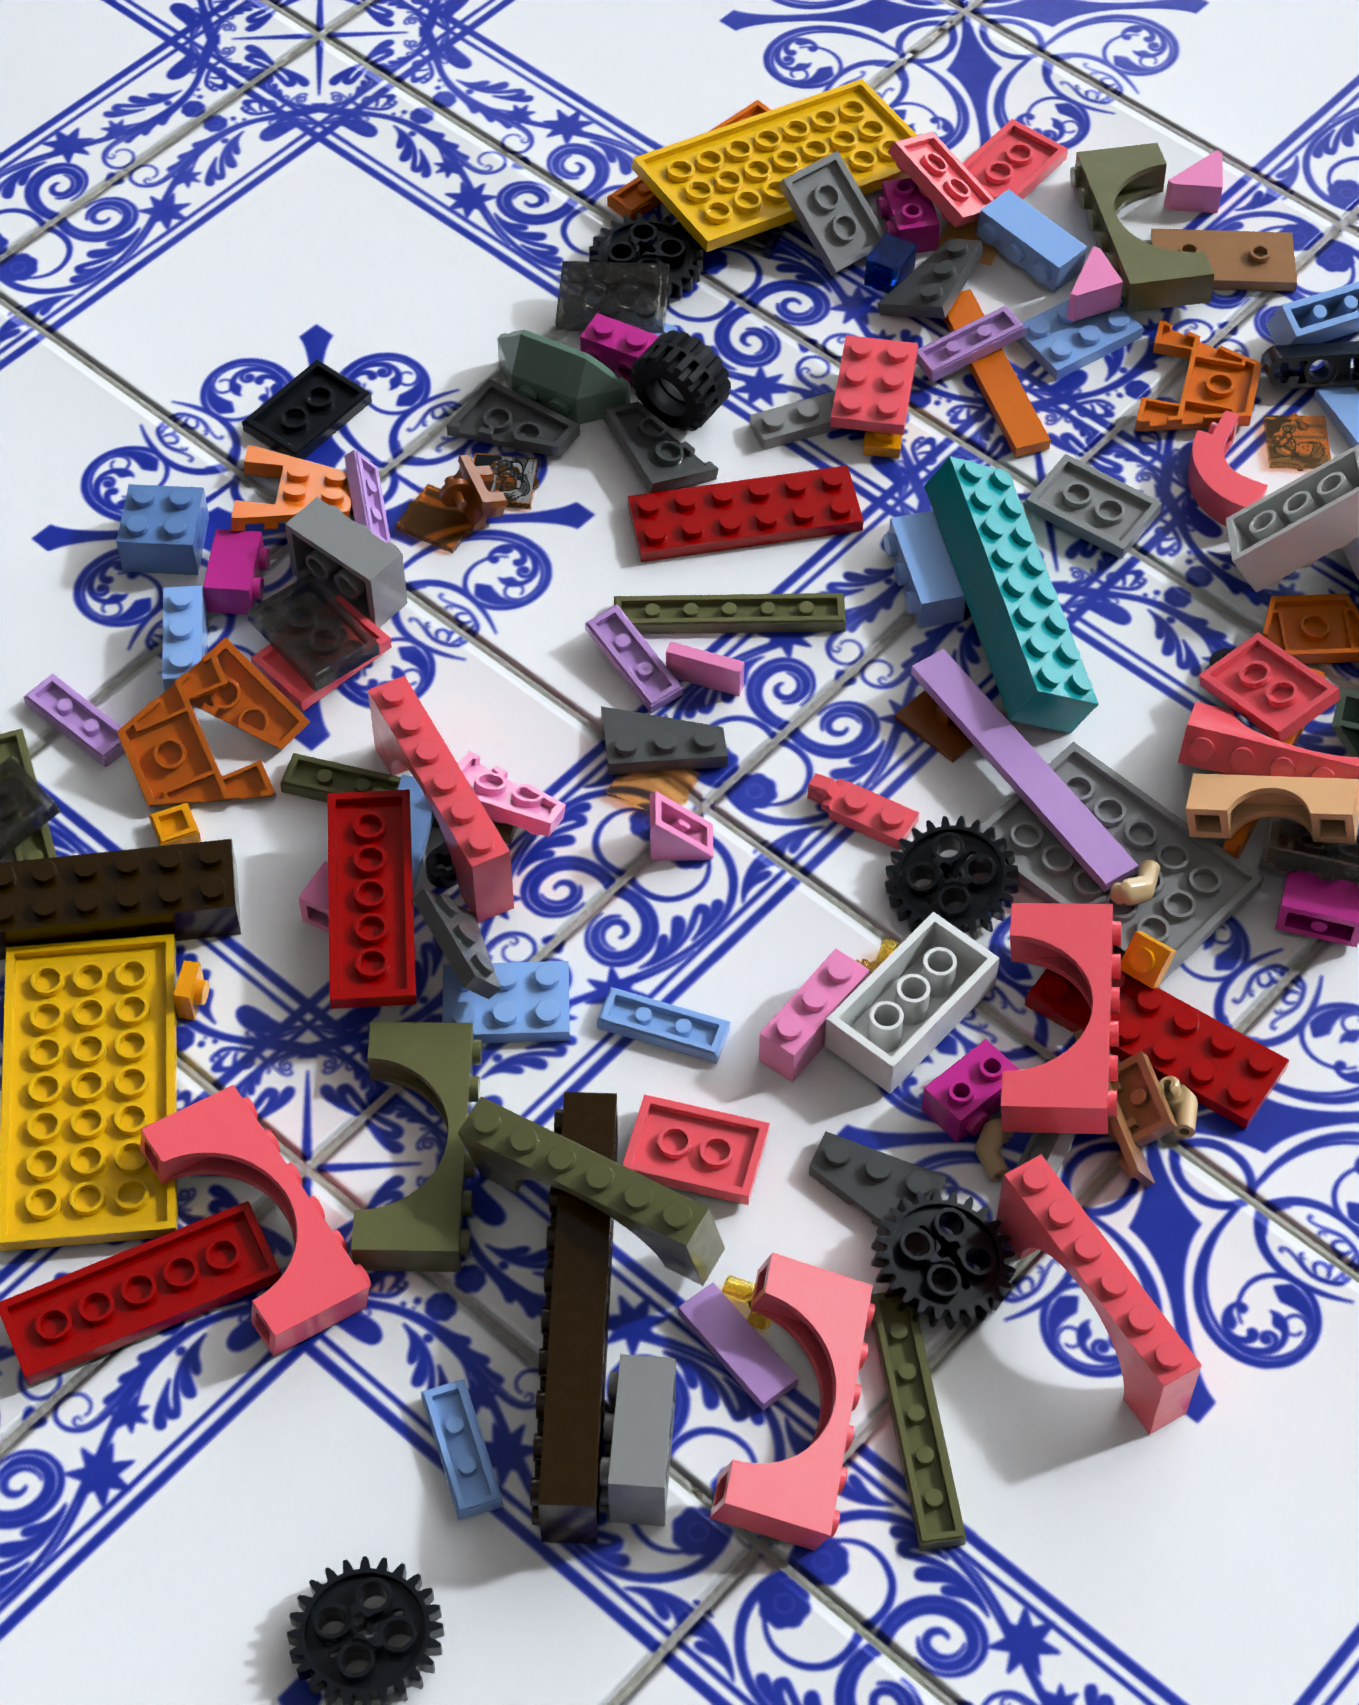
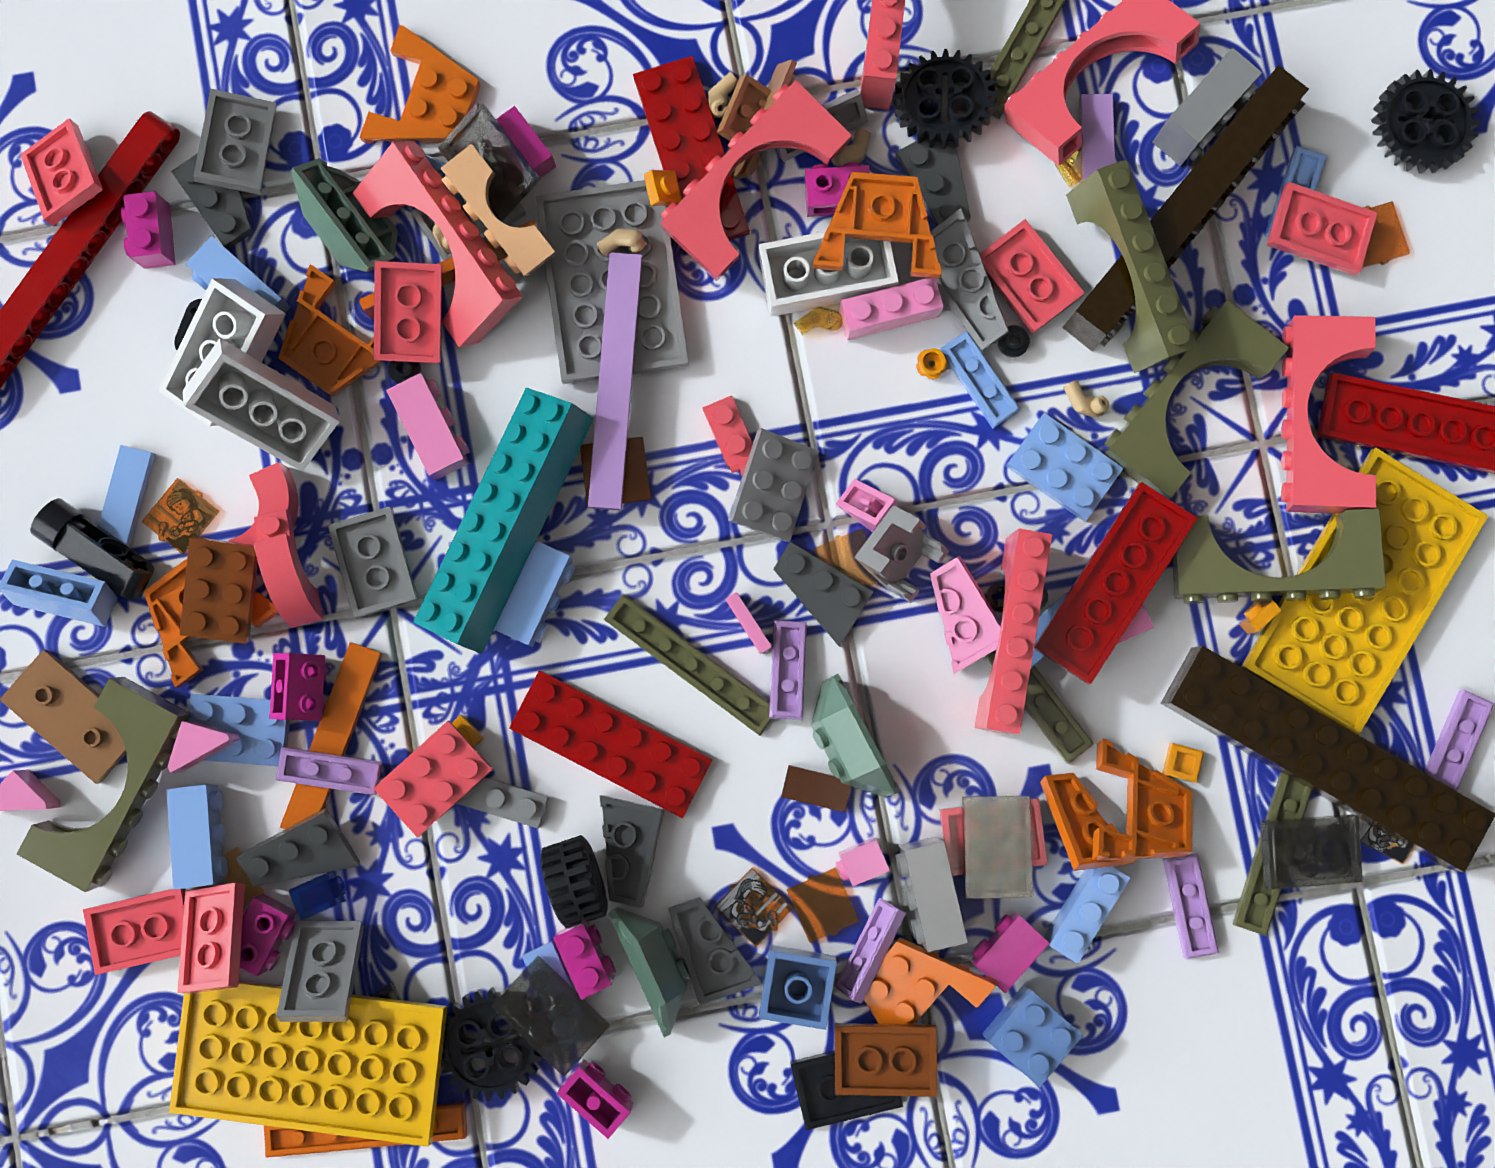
camera: 140 degrees left, 30 degrees up
(275, 986) = (1349, 567): none -> olive arch
(287, 430) = (885, 1059): none -> dark orange plate
(333, 1473) = (1386, 238): none -> clear orange piece
(404, 1411) = (1322, 228): none -> coral plate
(412, 435) = (797, 987): none -> medium blue brick
(431, 560) = (862, 862): none -> bright pink brick
(460, 941) = (1081, 506): dark grey wing -> none
(470, 493) = (797, 901): dark orange hips -> none
(521, 632) = (848, 742): none -> sand green wedge
(522, 269) = (596, 1097): none -> dark pink brick
(523, 593) = (815, 788): none -> reddish brown tile
(534, 1072) = (1085, 404): none -> tan arm
(617, 799) = (895, 550): none -> light grey panel
(659, 1088) = (1010, 350): none -> black plate
(726, 993) = (931, 355): none -> light orange plate
(772, 1094) = (966, 282): none -> light grey wing
(786, 789) = (773, 485): none -> light grey plate
(898, 1061) = (883, 210): none -> orange wing
(922, 860) = (720, 312): black gear -> none
(1058, 377) = (297, 686): none -> dark pink brick
(1156, 630) = (429, 426): none -> bright pink brick
(1162, 428) = (282, 571): none -> coral arch
(1197, 393) = (219, 590): none -> dark orange plate

